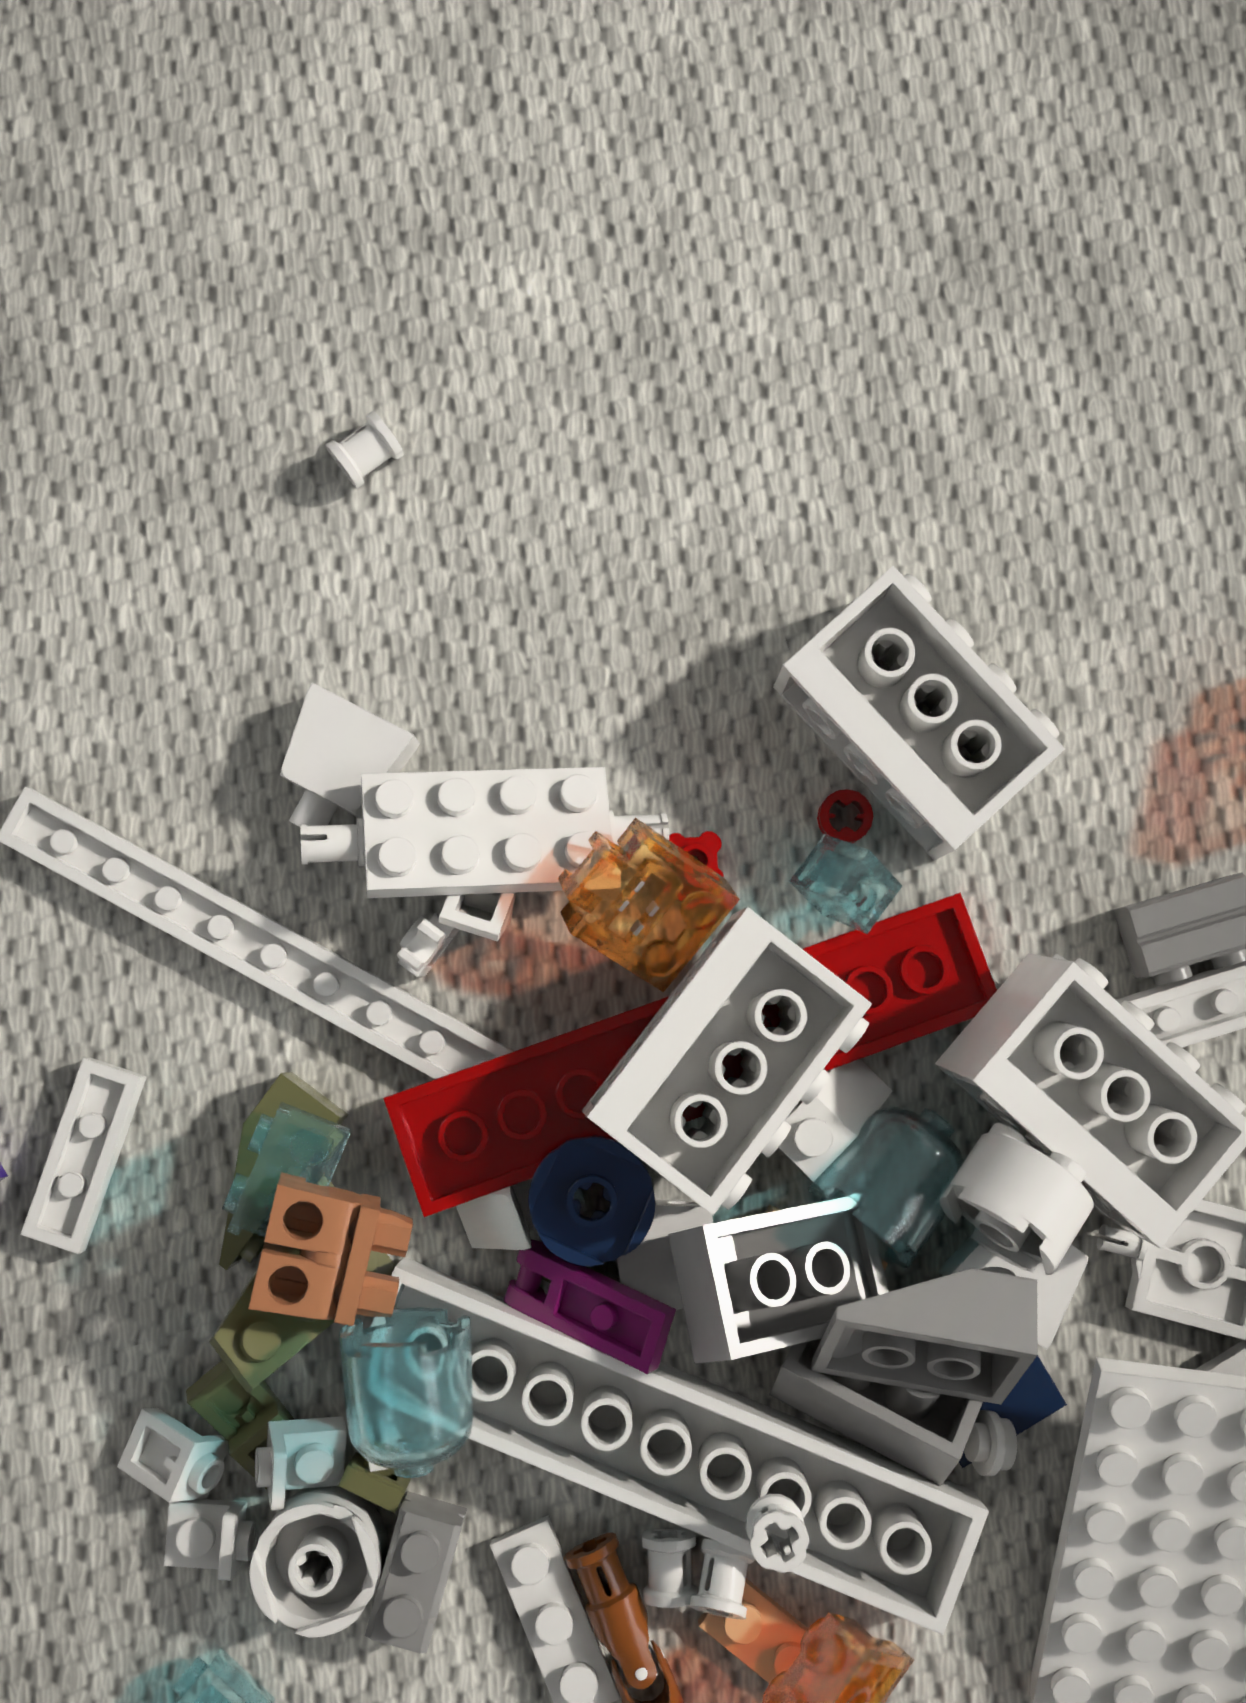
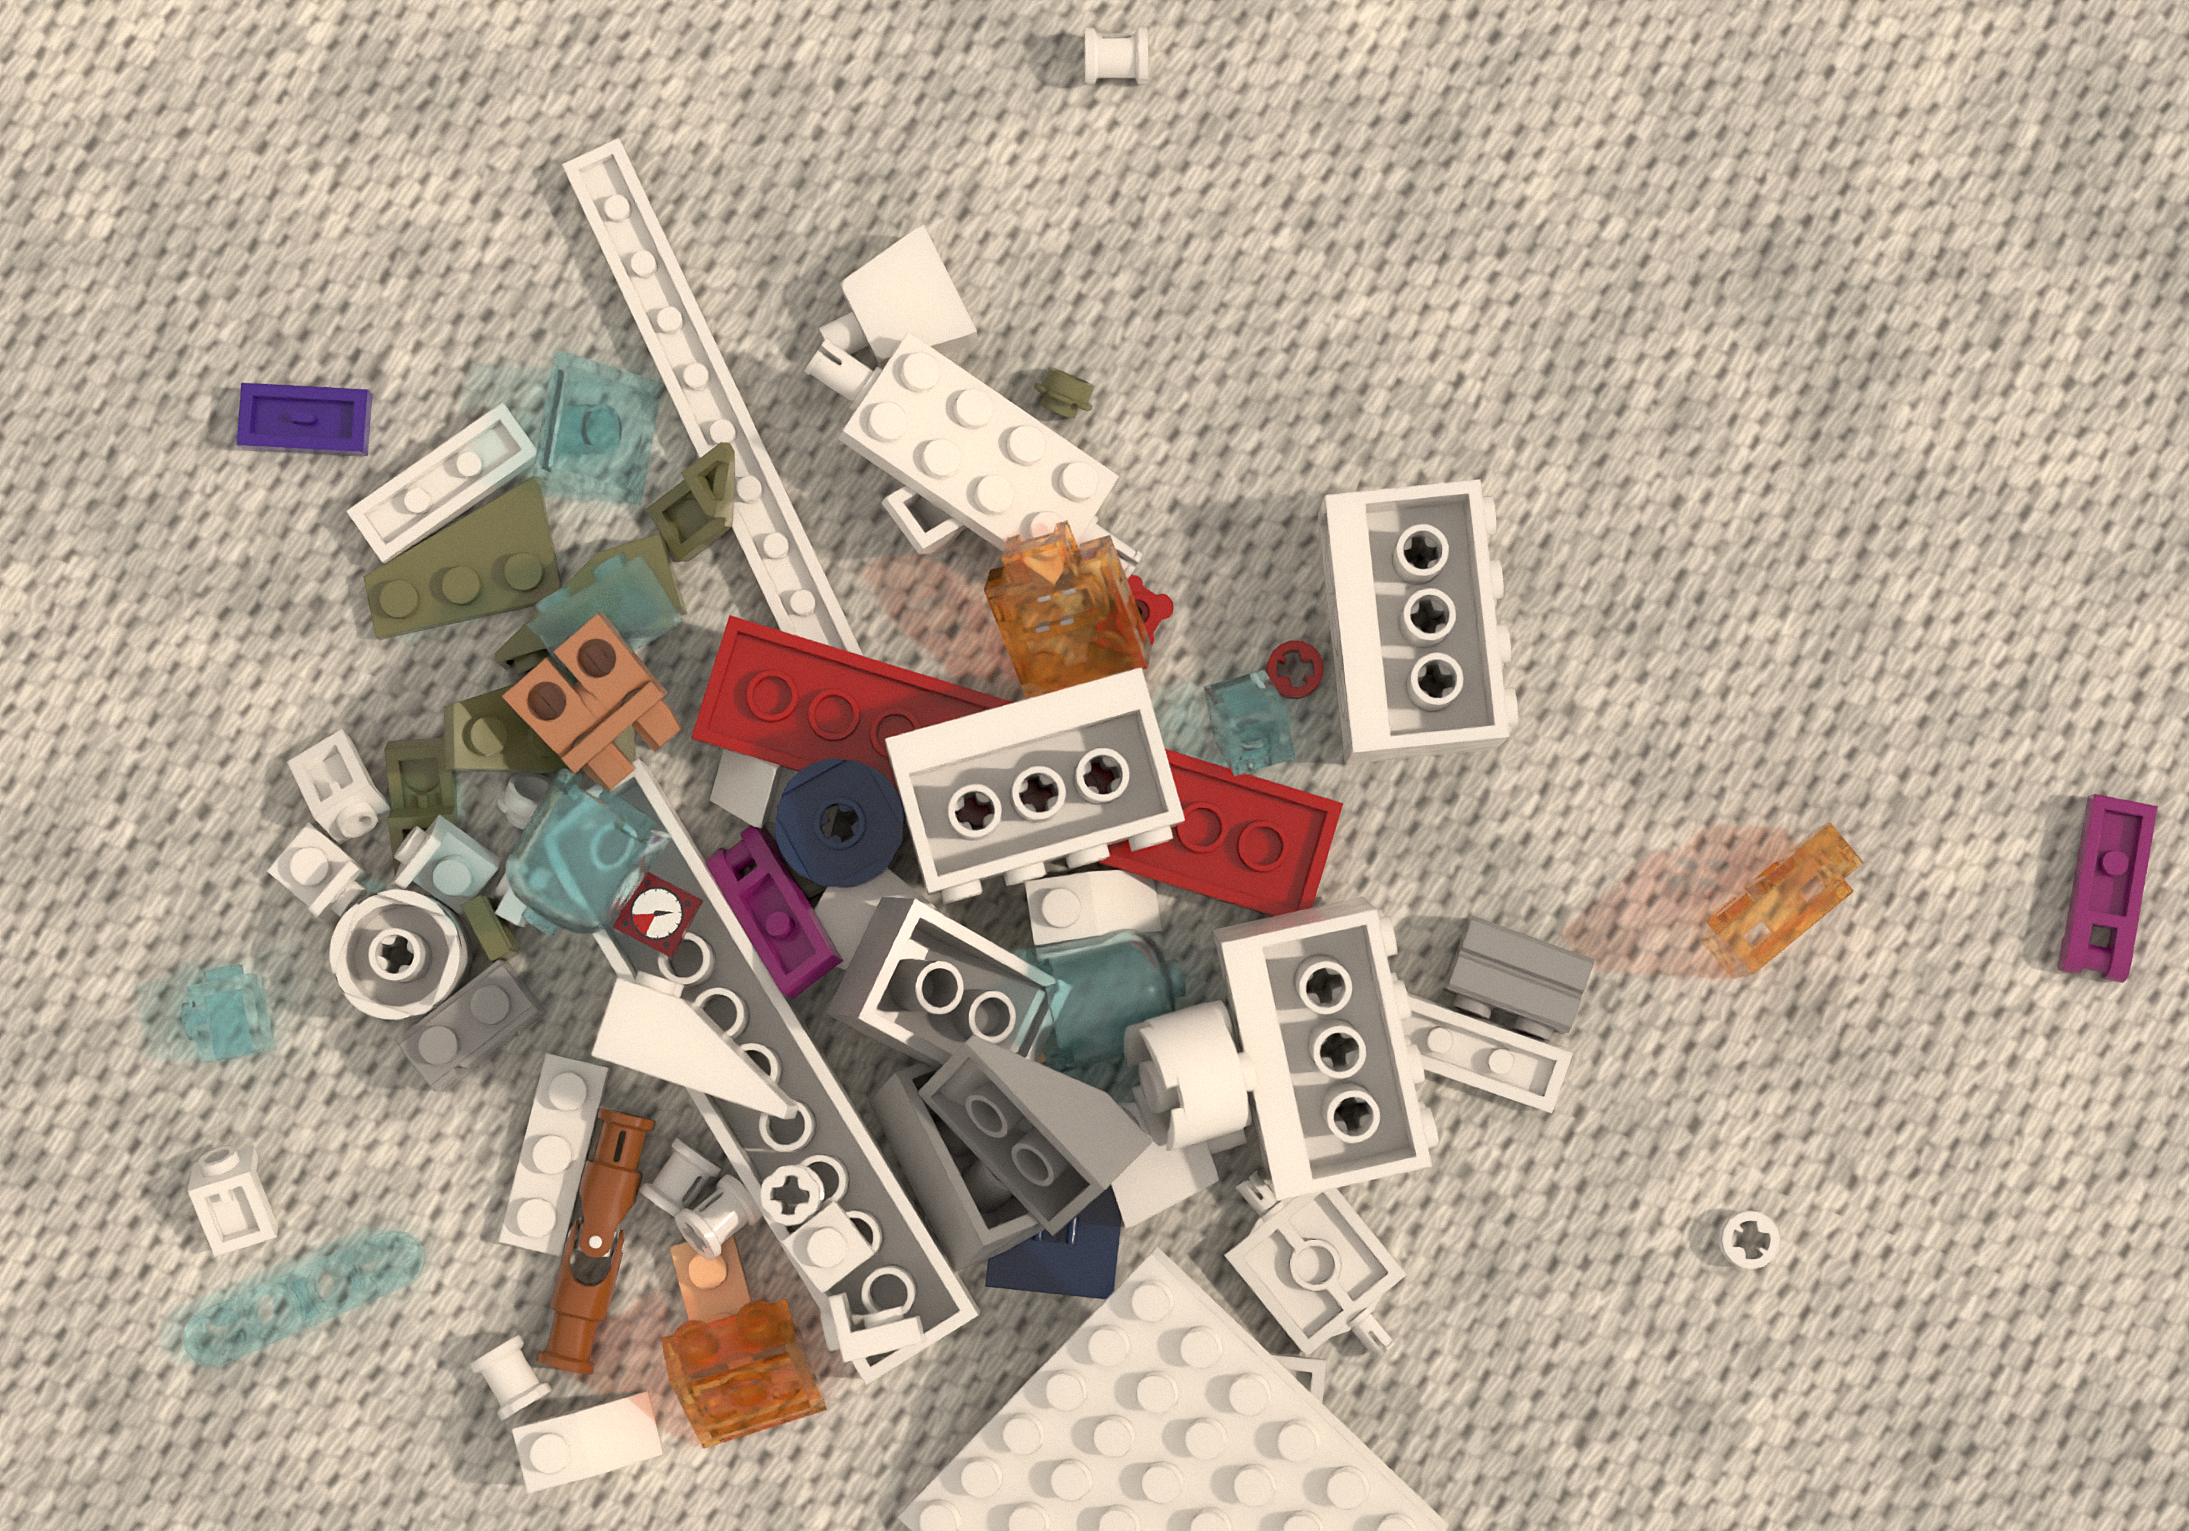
camera: 35 degrees right, 0 degrees up
(153, 1206) = (470, 570): none -> olive wing
(171, 1027) = (596, 430): none -> clear light blue slope
(296, 1027) = (699, 506): none -> olive slope
(324, 1357) = (522, 797): none -> white plate
(425, 945) = (857, 516): white plate -> none
(503, 1383) = (658, 915): none -> tile
(514, 733) = (1064, 393): none -> olive plate
(609, 1485) = (678, 1042): none -> white slope
(836, 1549) = (828, 1247): none -> white plate
(931, 1596) = (883, 1331): none -> white bracket
(991, 1444) = (1022, 1275): white plate -> none

